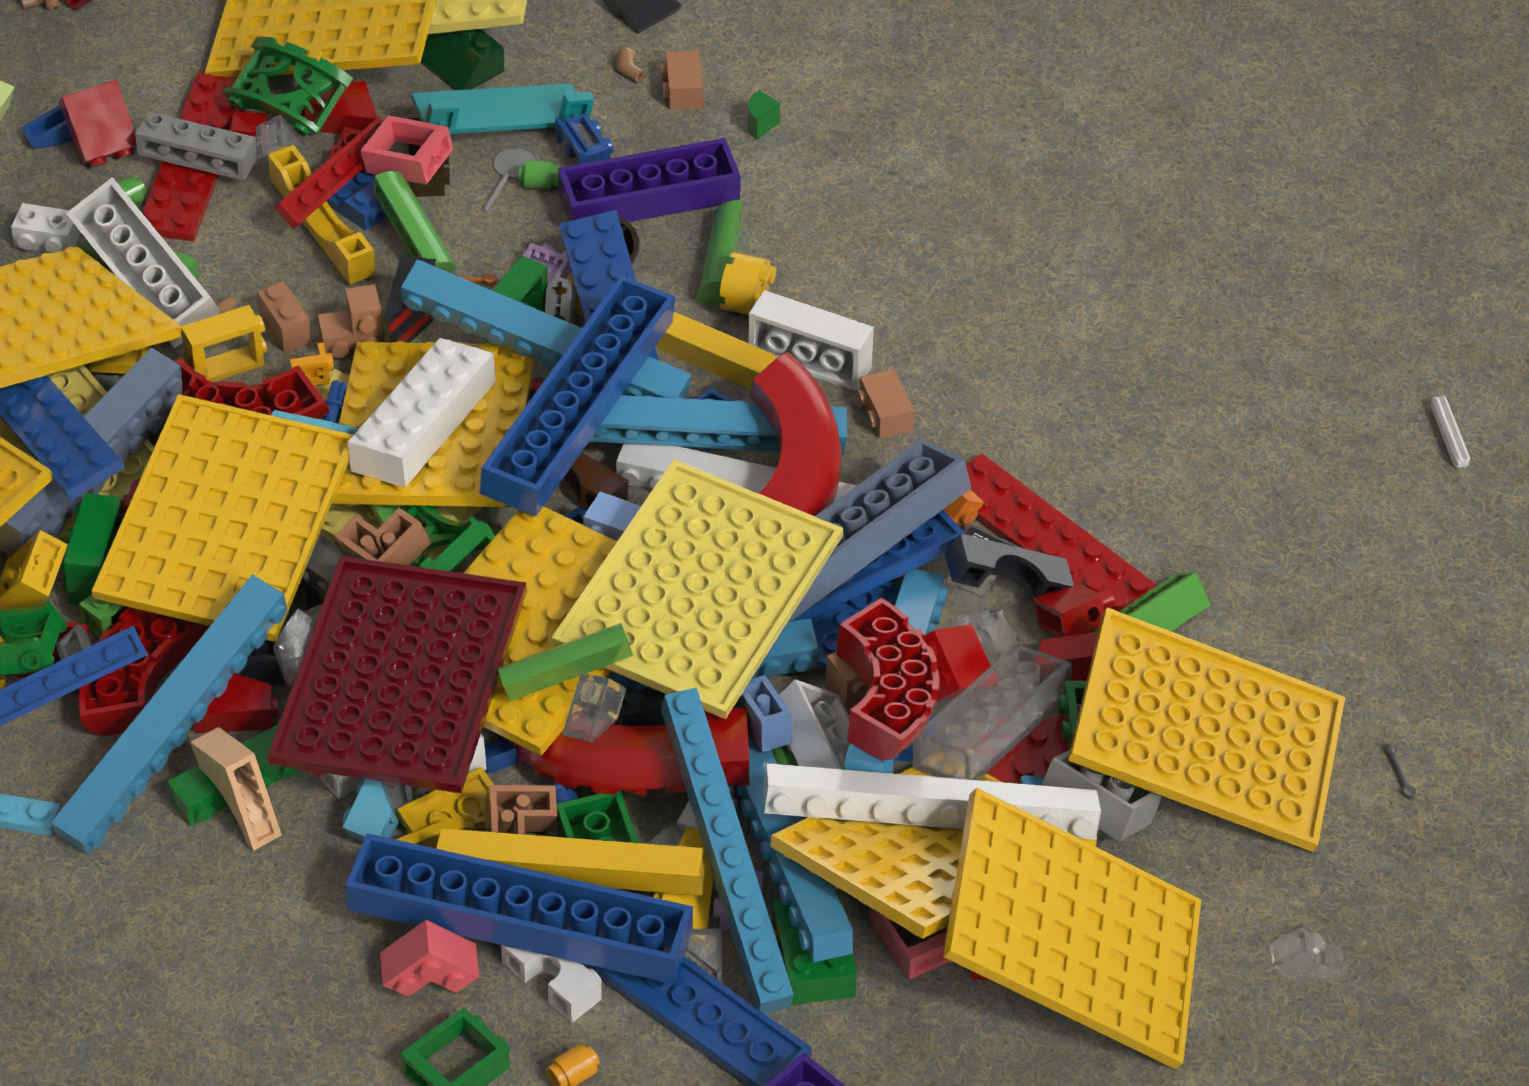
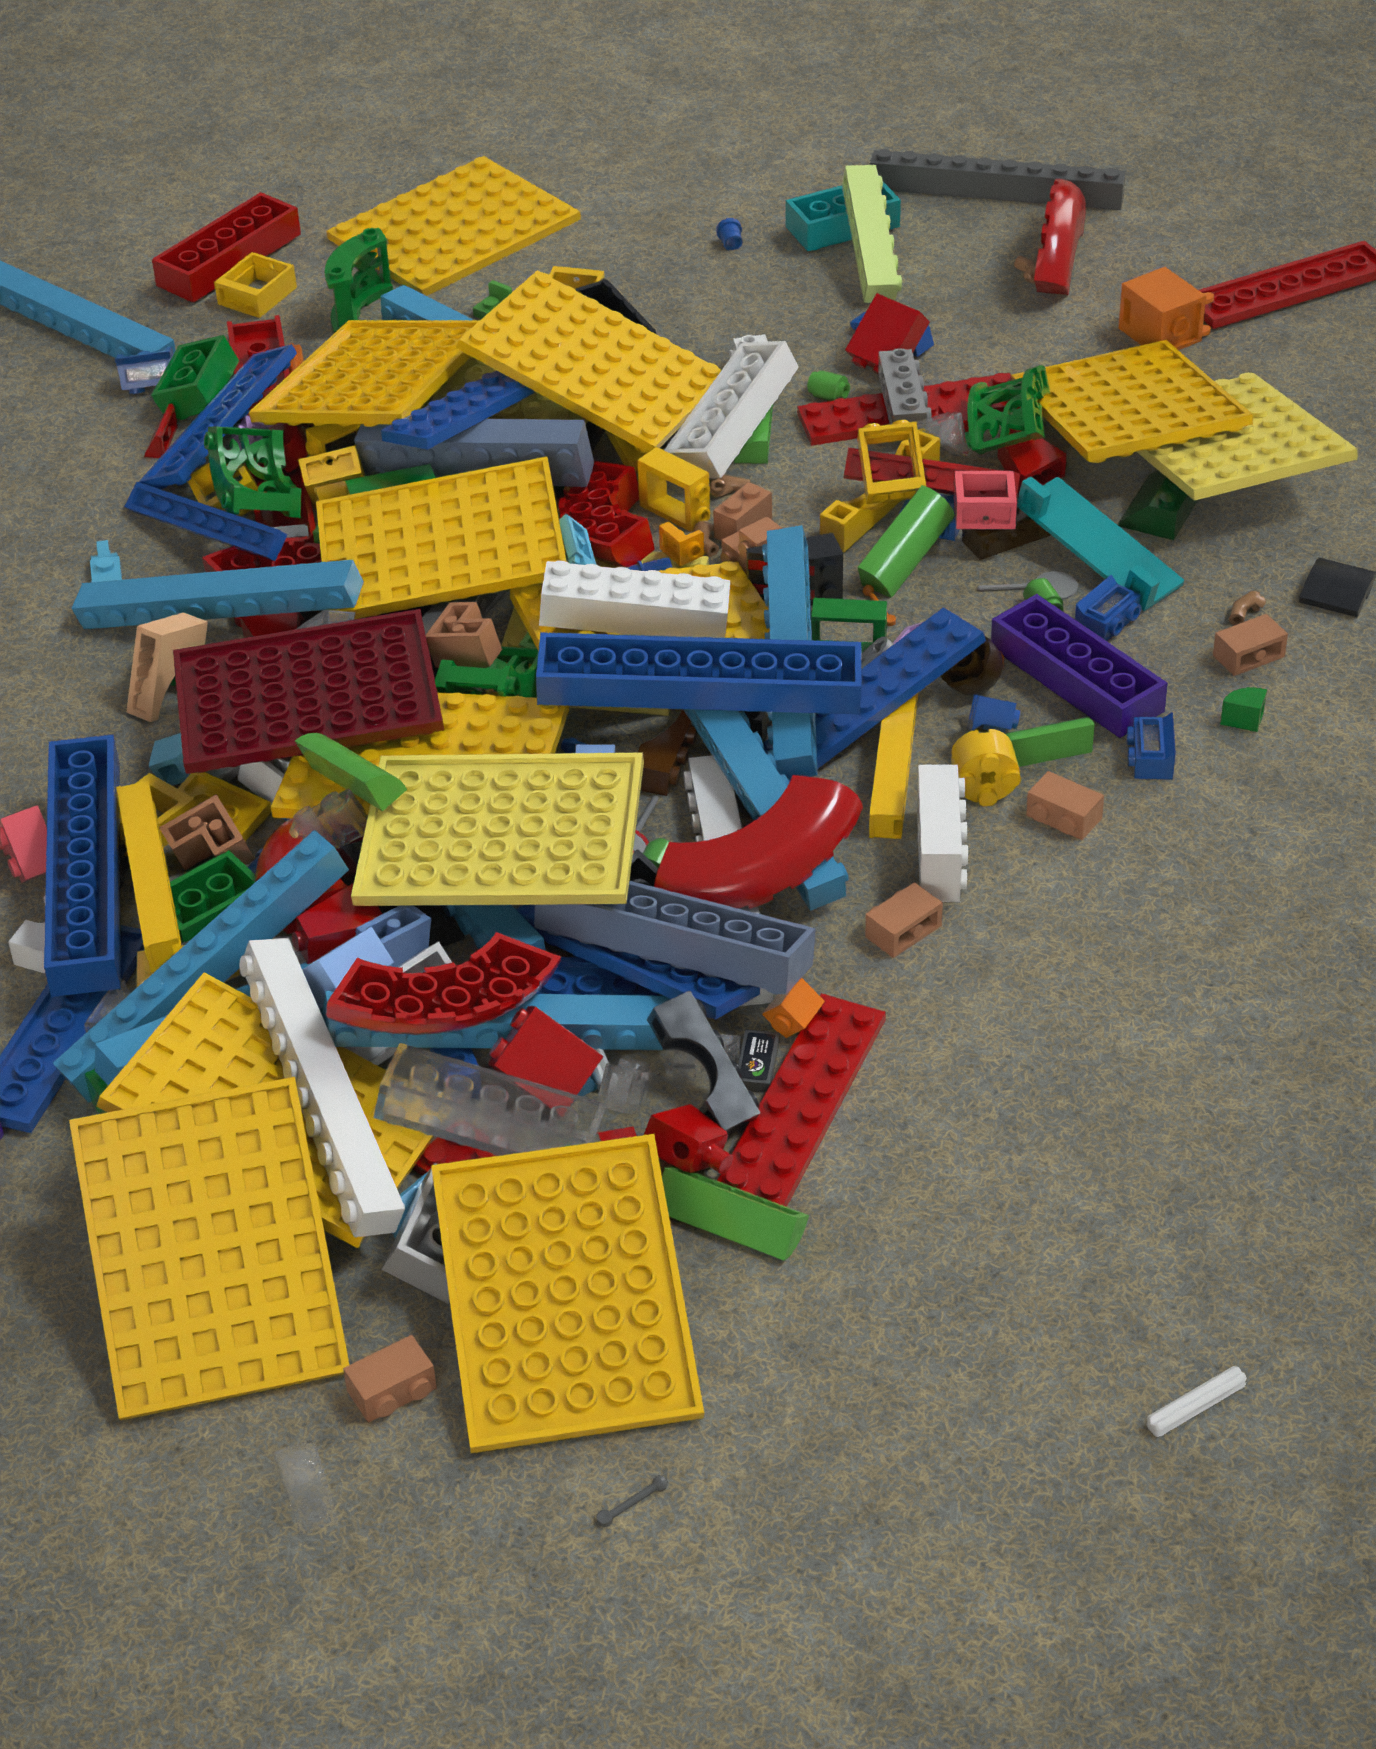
camera: 70 degrees right, 5 degrees down
(281, 355) = (710, 547): none -> medium nougat arm
(332, 167) = (894, 489): none -> yellow window
(683, 257) = (992, 714): none -> blue window
(773, 182) = (1152, 747): none -> blue window
(799, 739) = (332, 967): none -> light blue brick
(809, 260) = (1065, 805): none -> nougat brick
(1225, 875) = (390, 1378): none -> nougat brick

